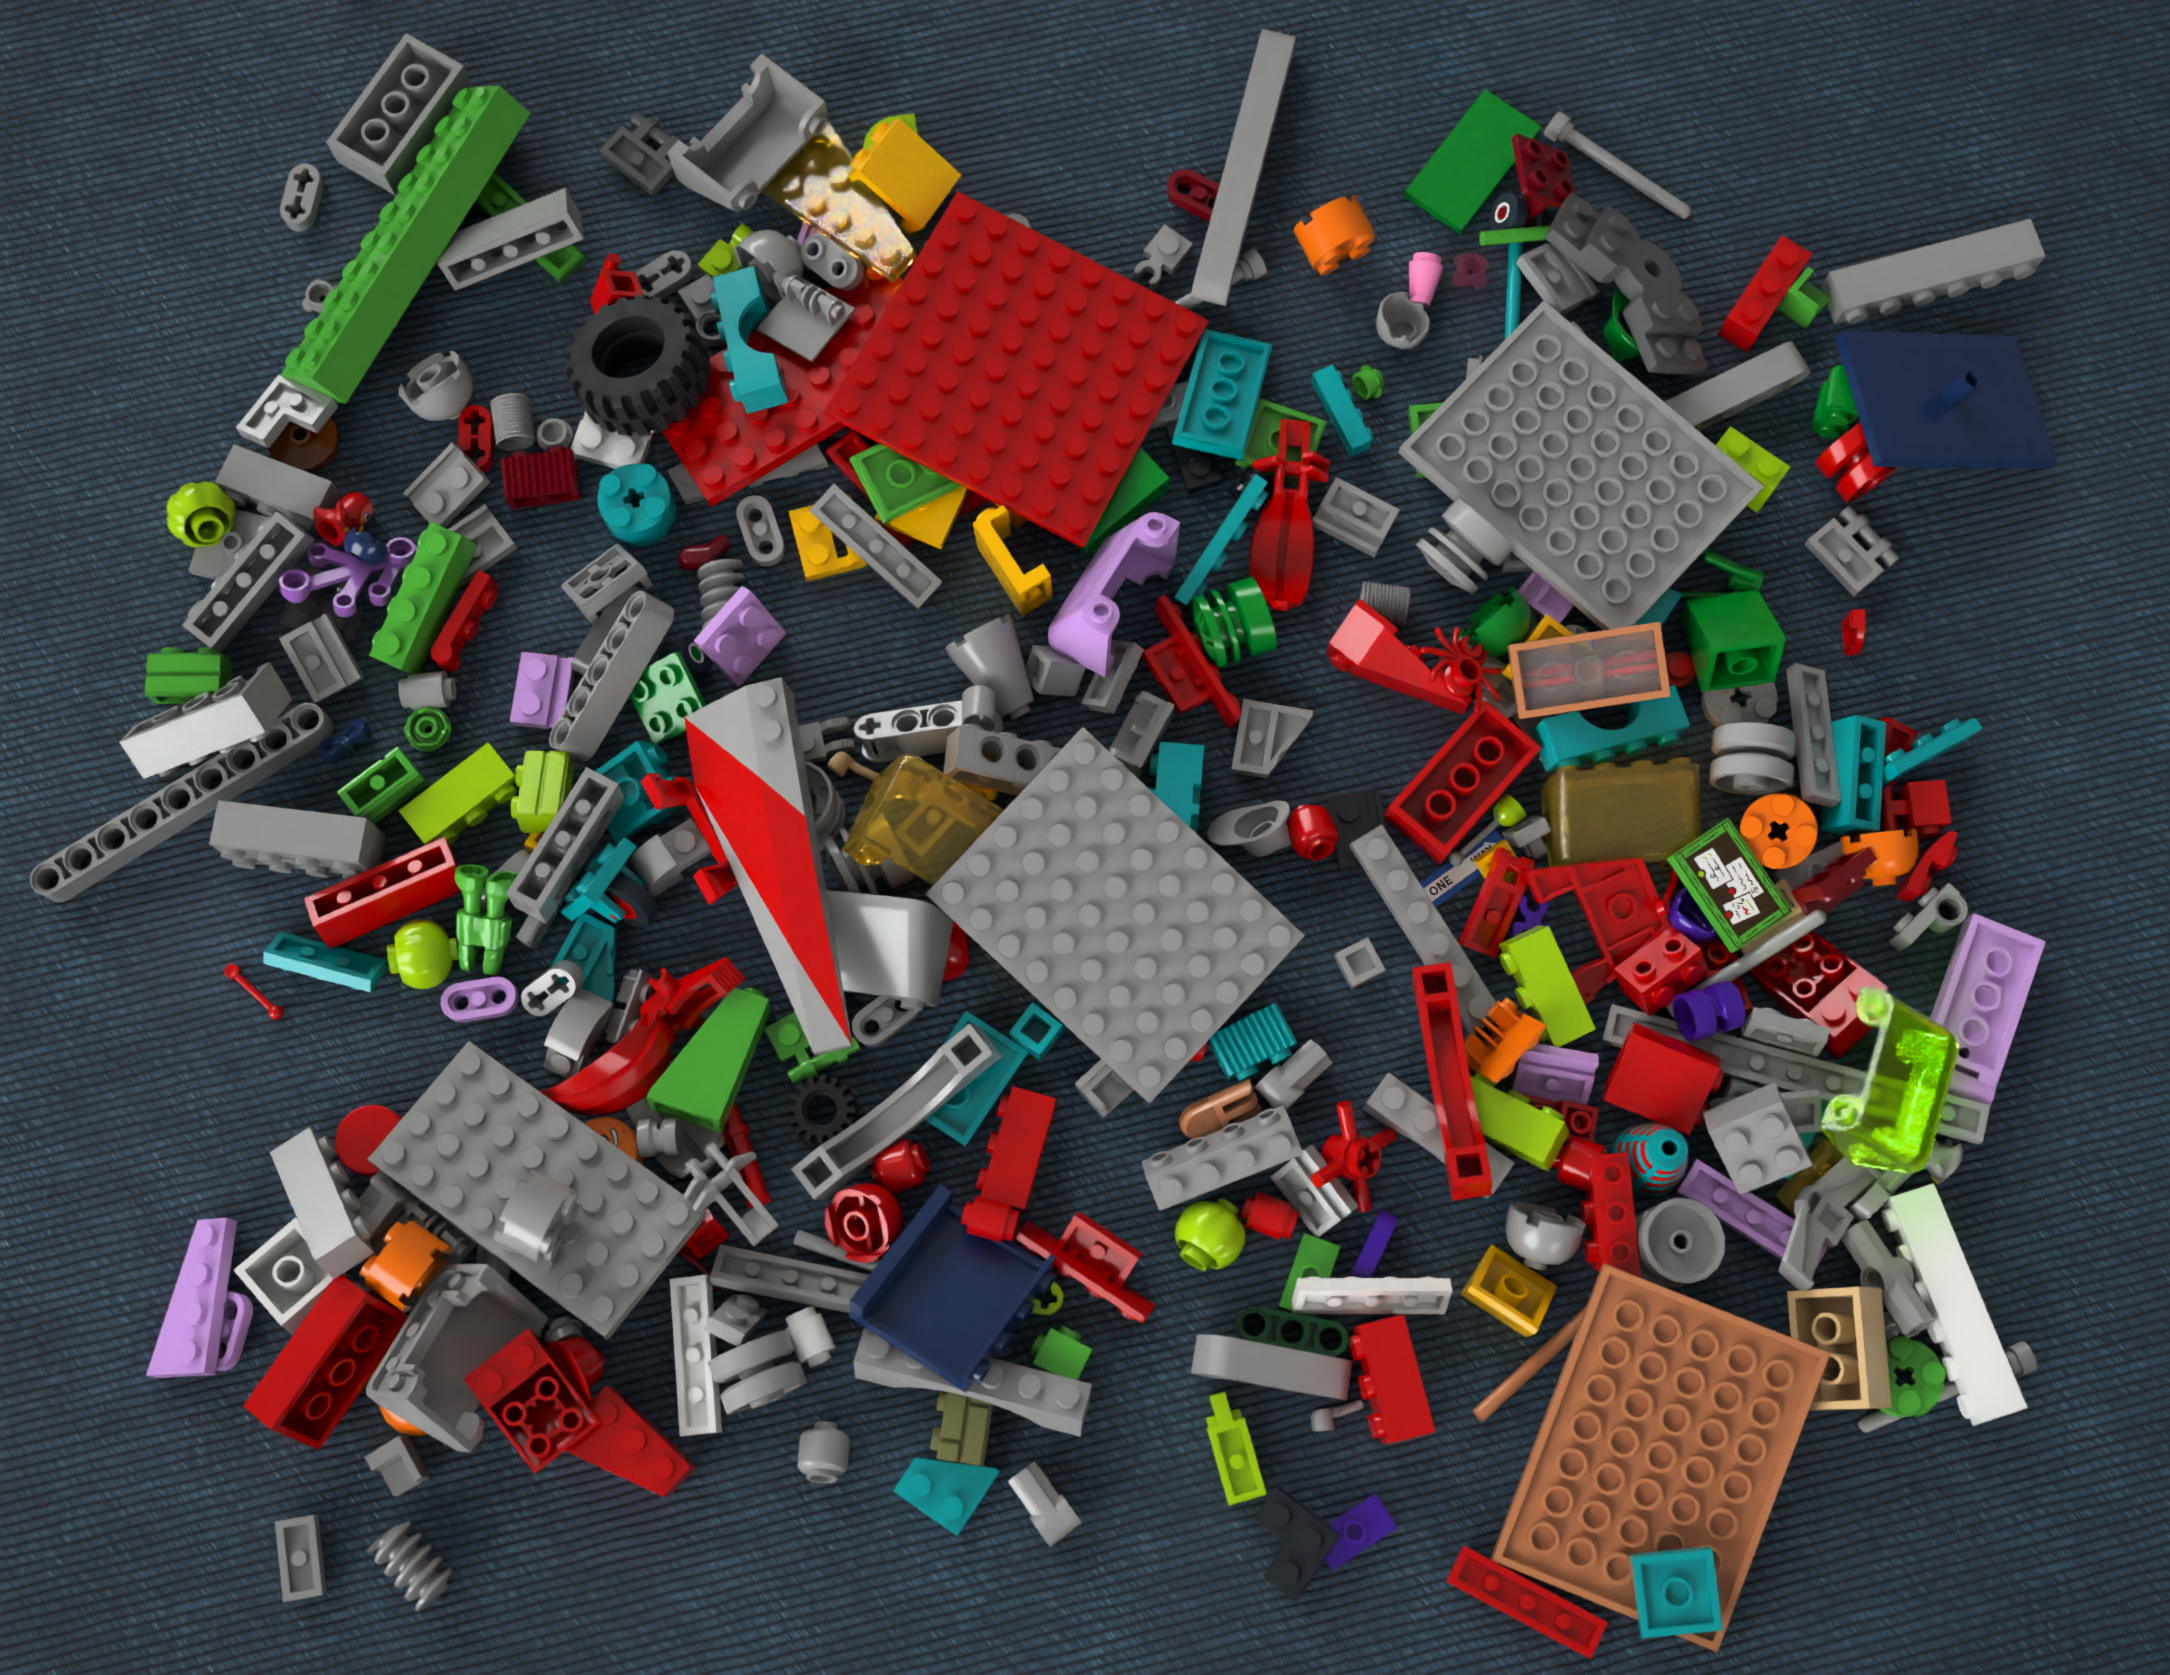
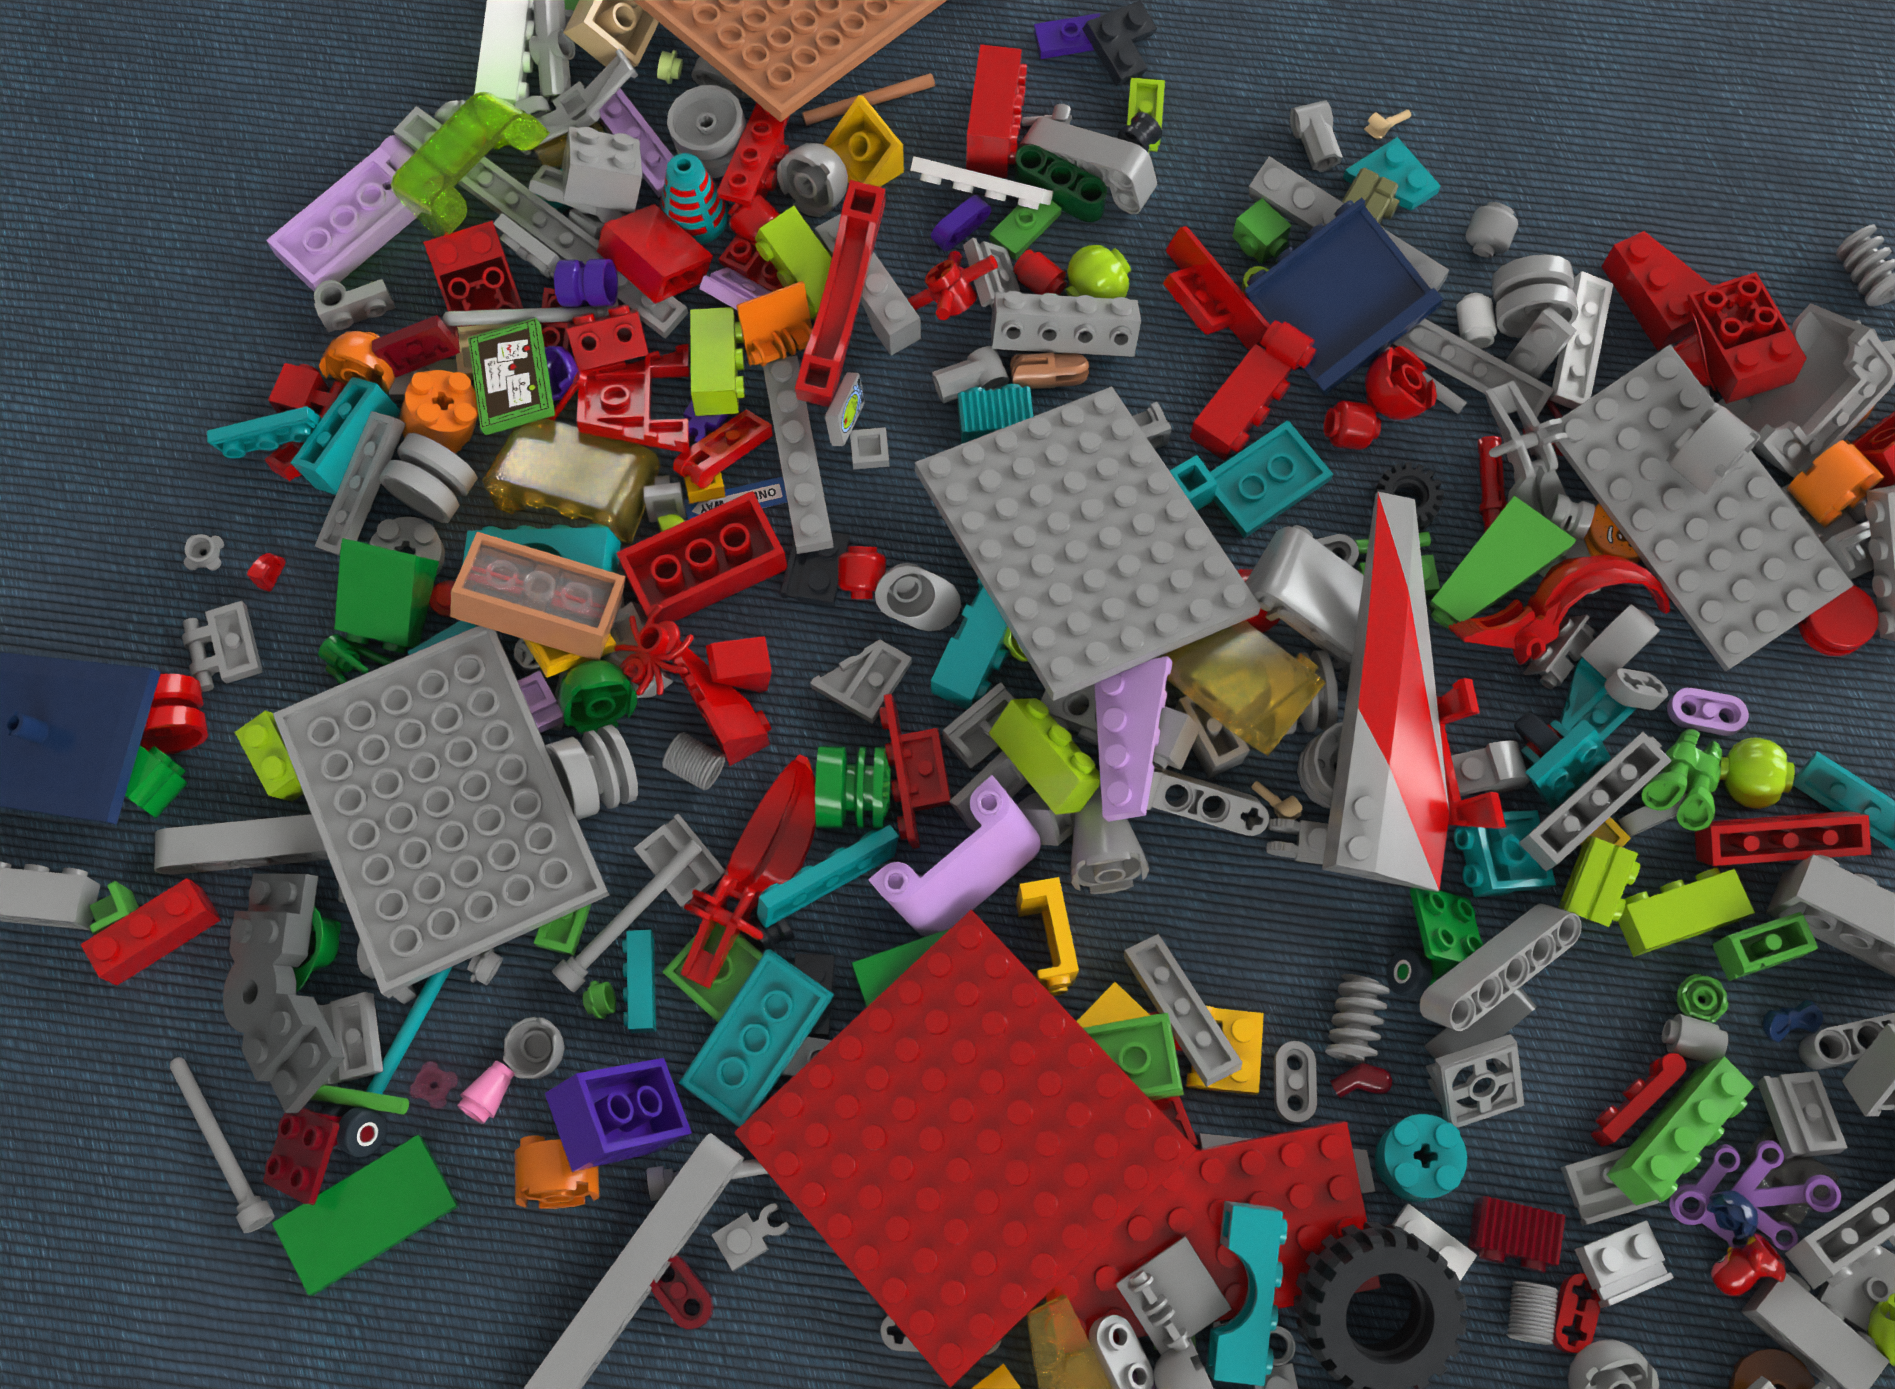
camera: 160 degrees left, 5 degrees down
(541, 690) = (1571, 999): lavender plate -> none
(554, 433) = (1487, 1283): light grey plate -> none
(740, 636) = (1354, 962): lavender plate -> none
(926, 1091) = (1289, 467): light grey arch -> none
(981, 1545) = (1380, 126): none -> tan hand
(1003, 733) = (1127, 735): none -> lavender wing
(1070, 703) = (1046, 755): none -> lime brick
(1228, 1408) = (1142, 131): none -> black wheel
(1304, 282) = (617, 1113): none -> dark purple brick
(1381, 692) = (741, 663): none -> red slope
(1398, 984) = (844, 409): none -> light grey tile
(1401, 395) = (574, 970): none -> light grey piece
(1758, 1313) = (669, 66): none -> yellowish green plate
(1925, 619) = (196, 545): none -> light grey plate
(1932, 860) = (312, 346): red slope -> none

